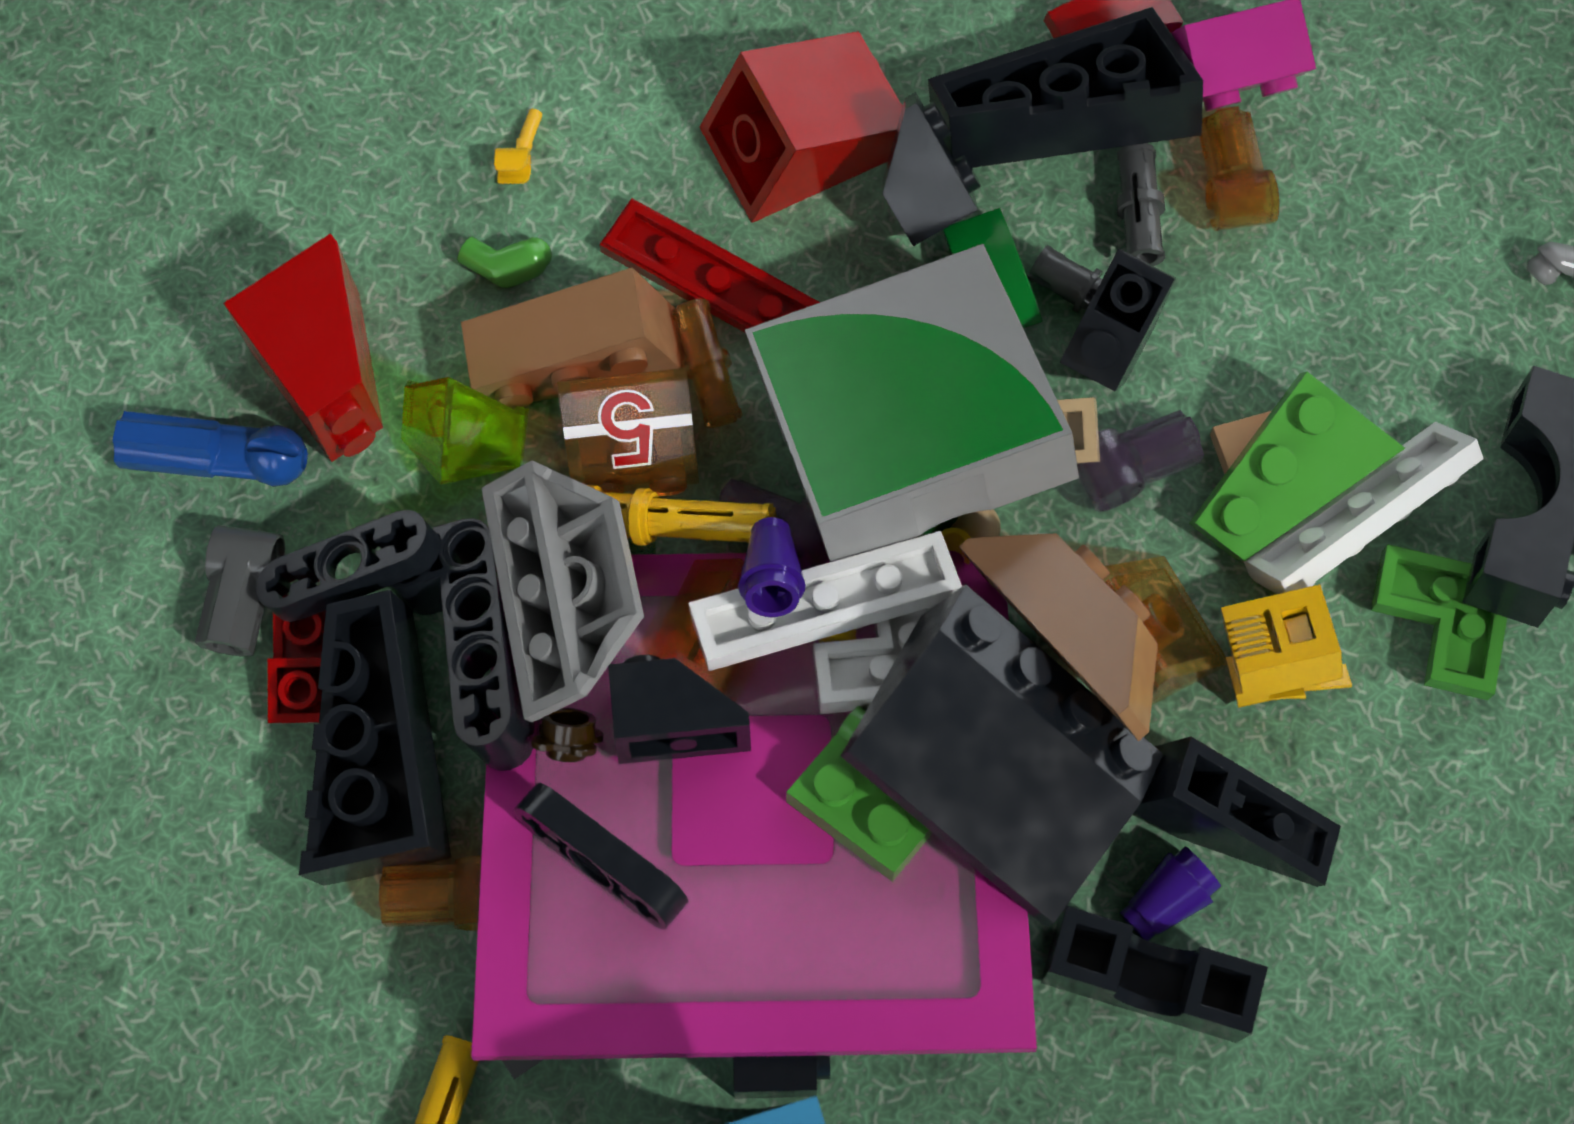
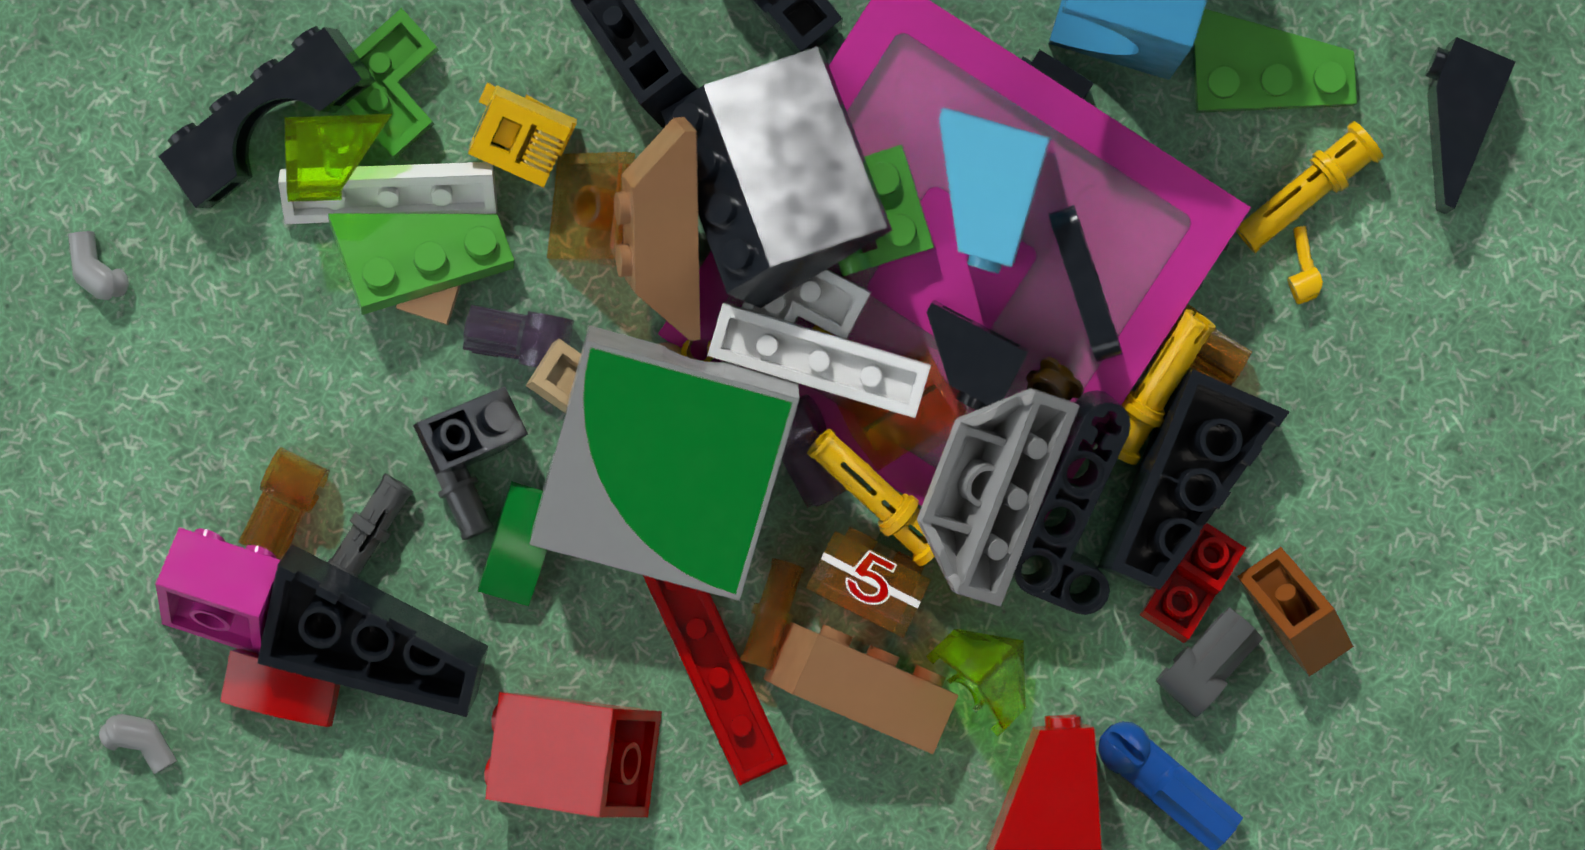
camera: 145 degrees left, 15 degrees up
(177, 690) = (1296, 611): none -> dark orange slope
(367, 1041) = (1308, 283): none -> yellow hand
(375, 572) = (1087, 615): black beam -> none
(460, 791) = (1165, 374): none -> yellow pin
(508, 265) = (864, 791): bright green arm -> none
(771, 570) = (846, 397): dark purple cone -> none
(774, 881) = (990, 185): none -> medium azure slope
(922, 177) = (523, 641): black slope -> none
(1170, 894) = (717, 25): dark purple cone -> none
(1459, 488) = (326, 152): none -> clear neon green slope

